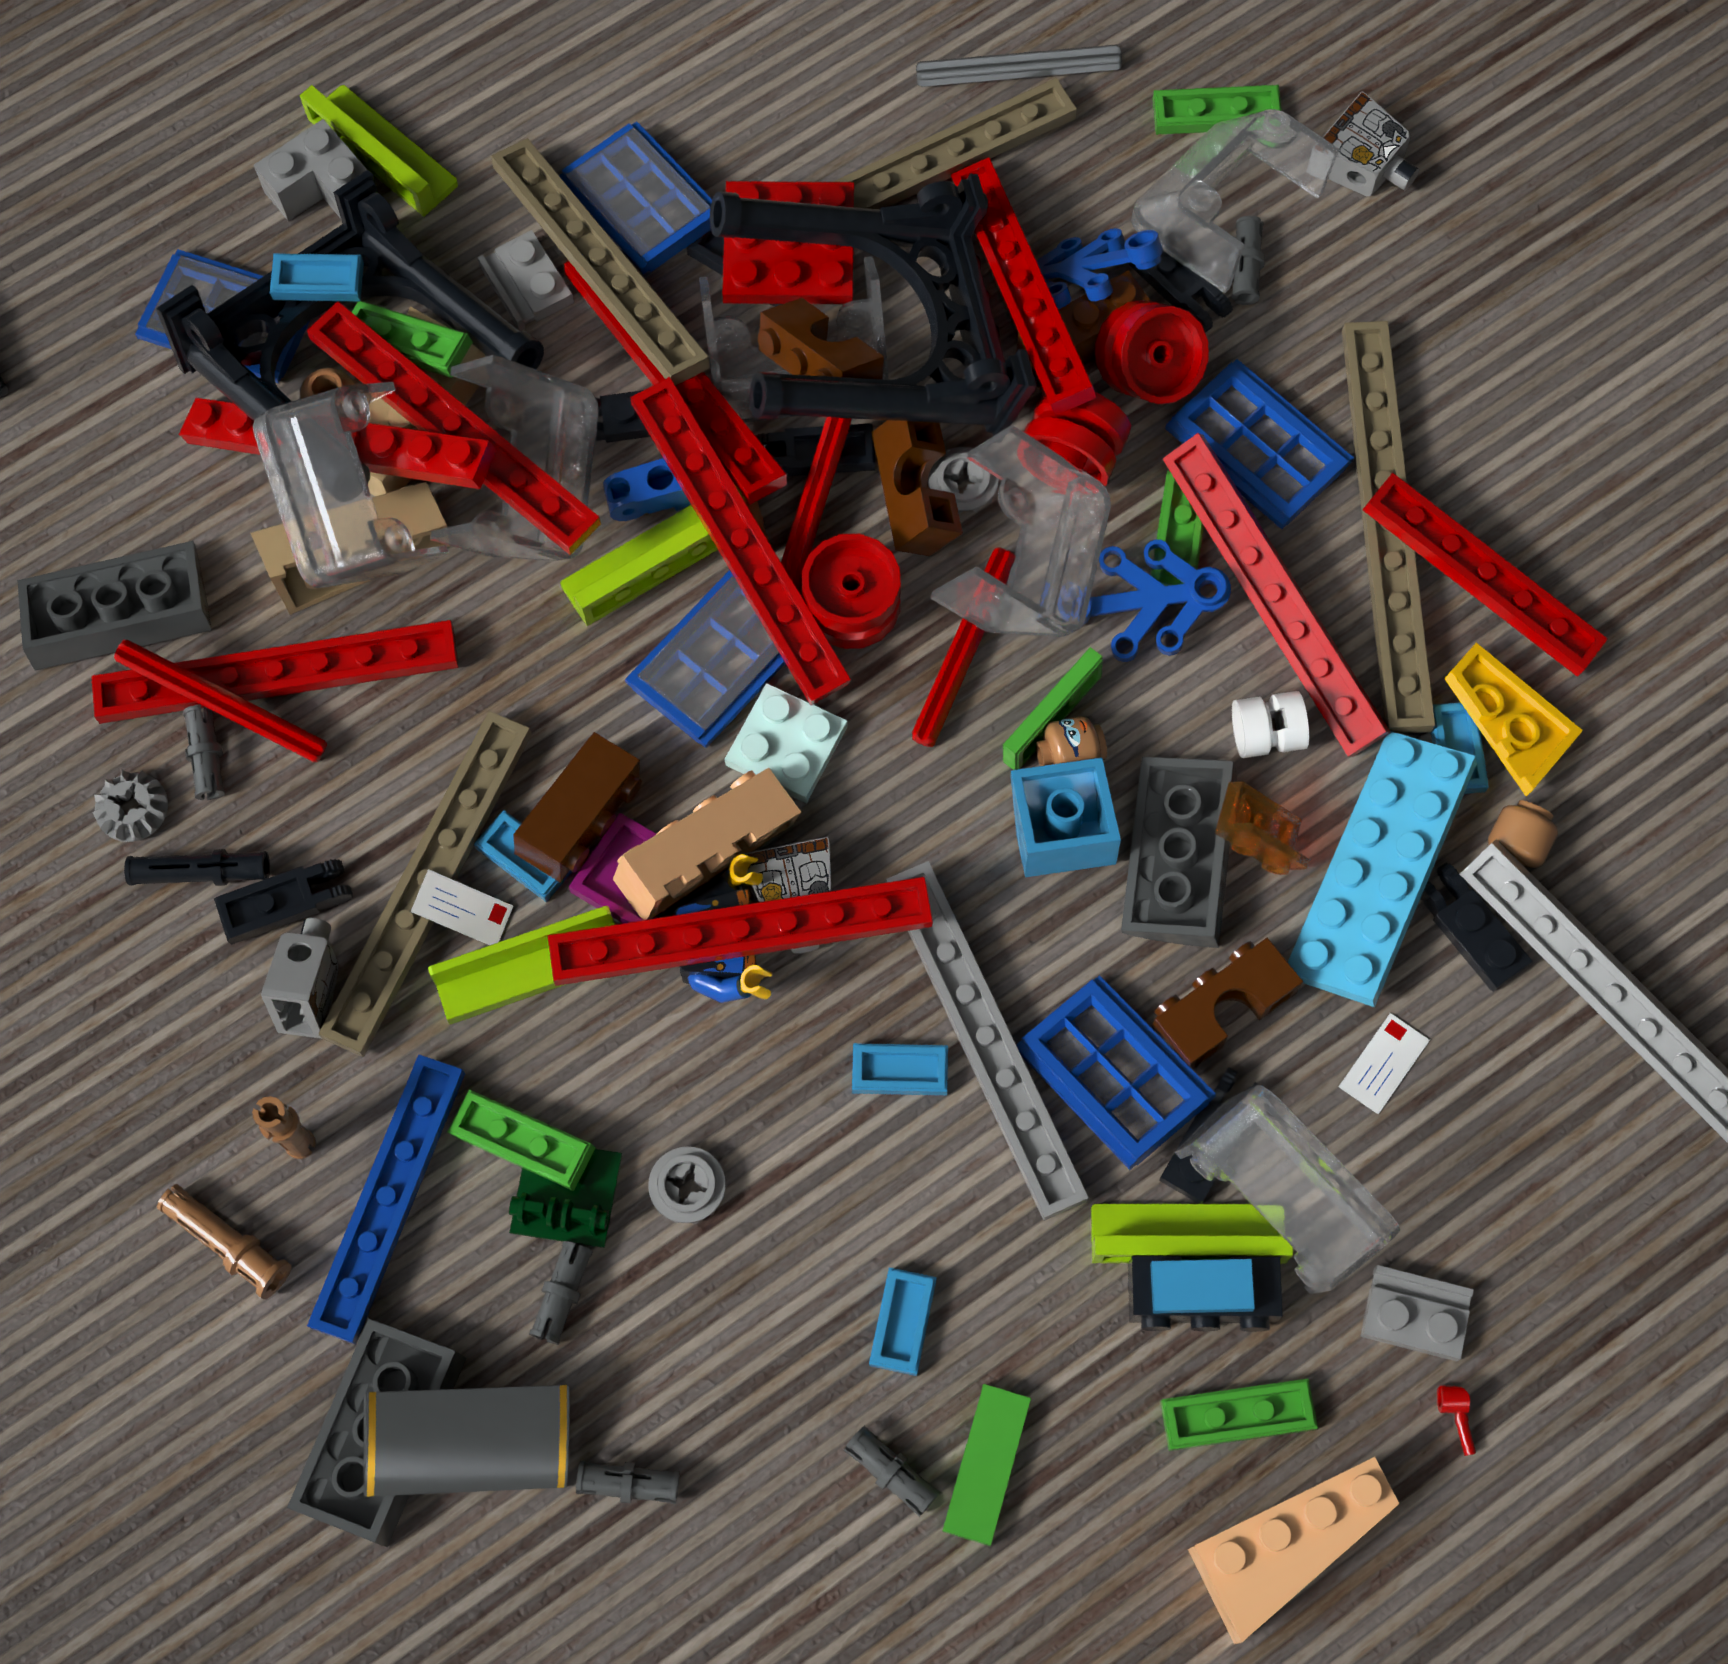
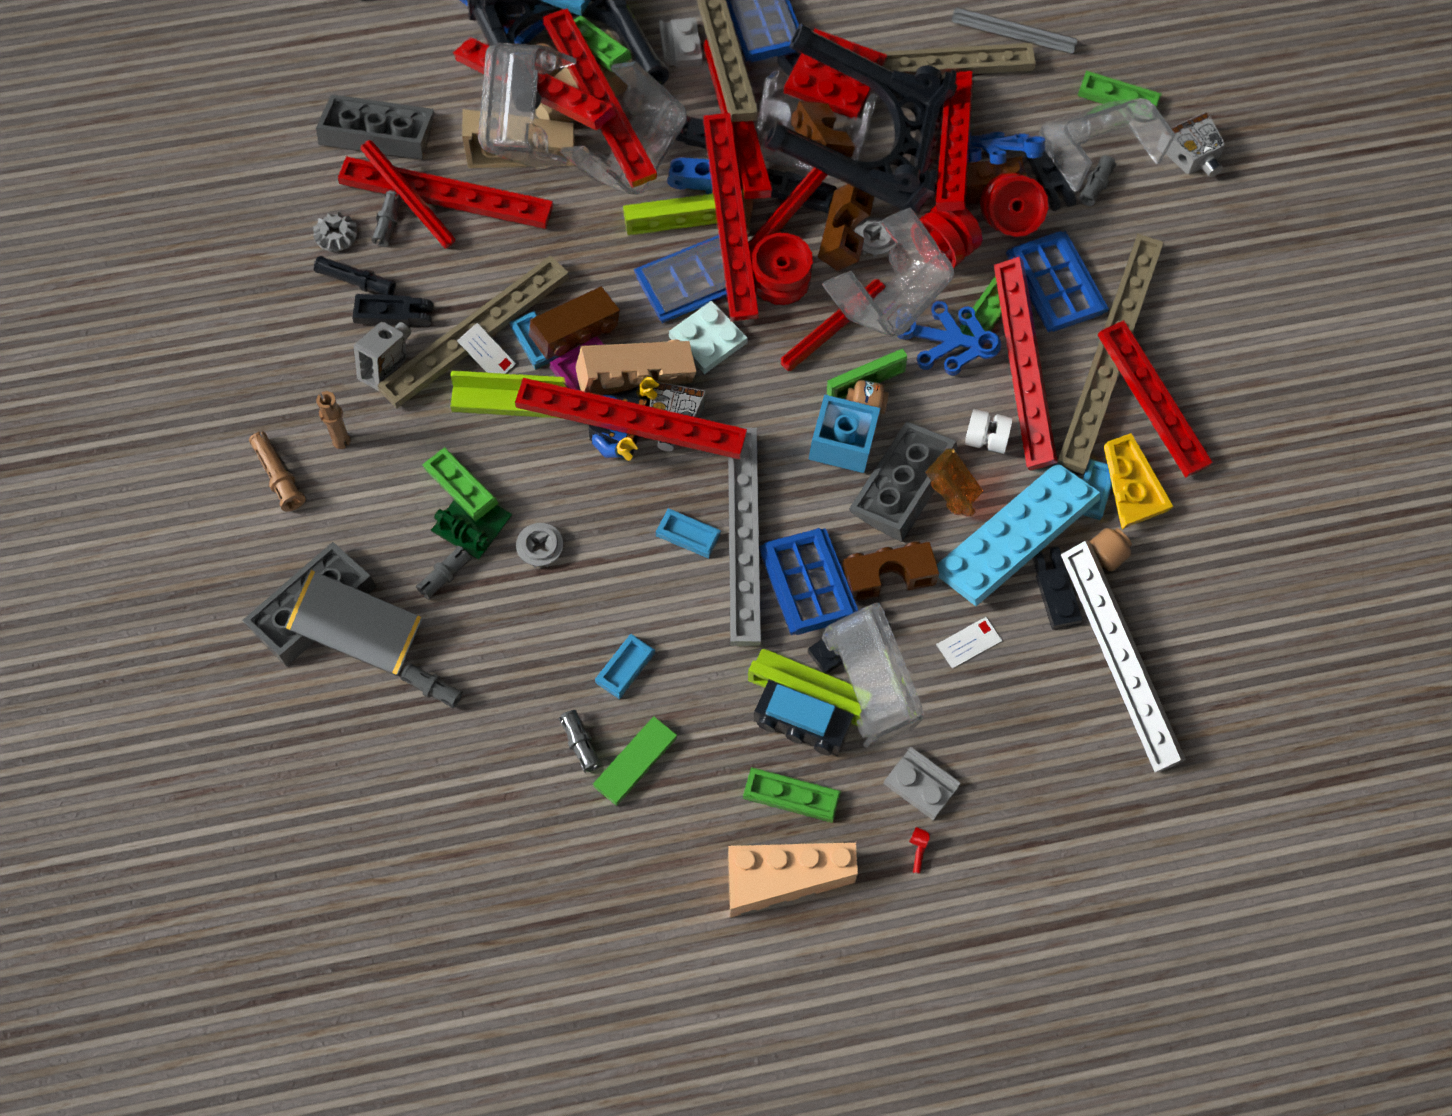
camera: 20 degrees right, 5 degrees down
(386, 1200) = (372, 485): blue plate -> none

